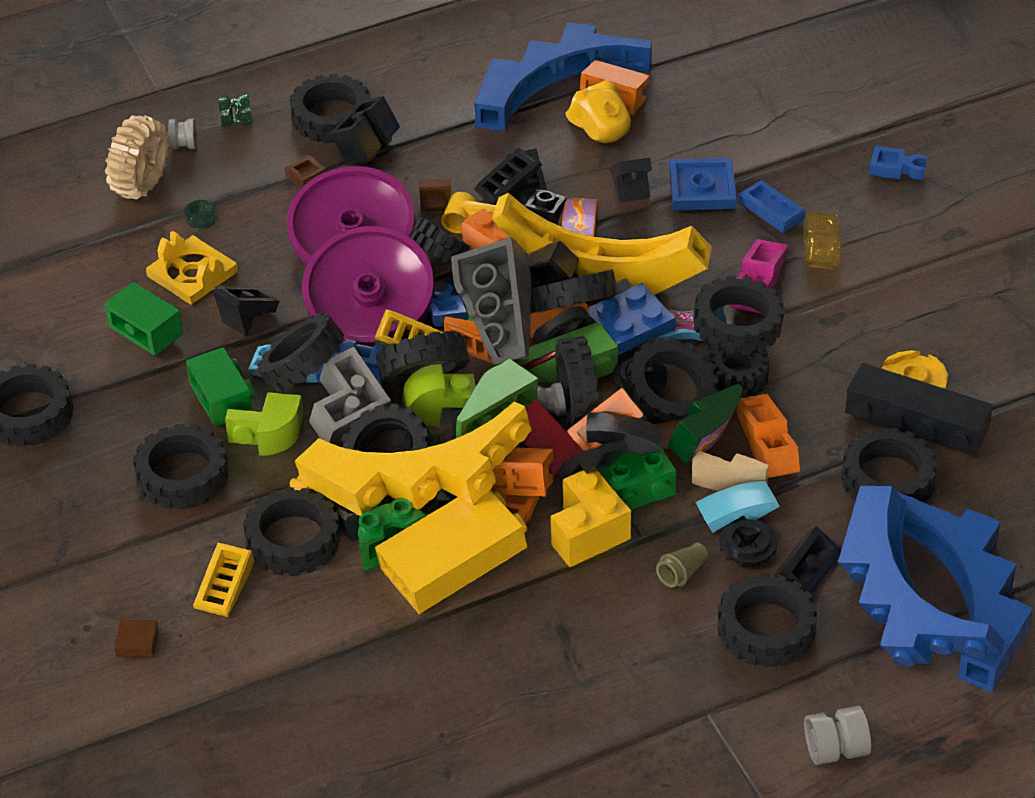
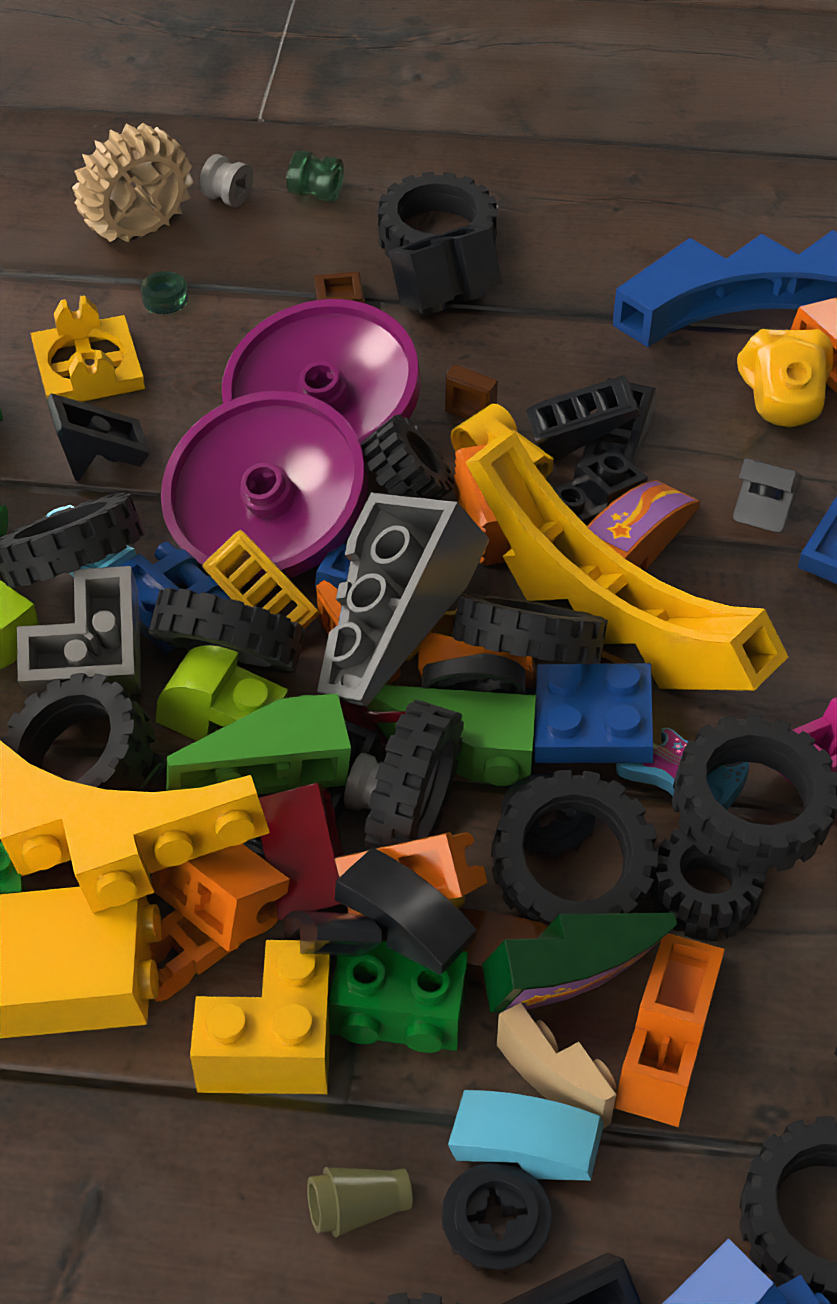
camera: 30 degrees right, 5 degrees up
(552, 264) = (525, 570): black slope -> none

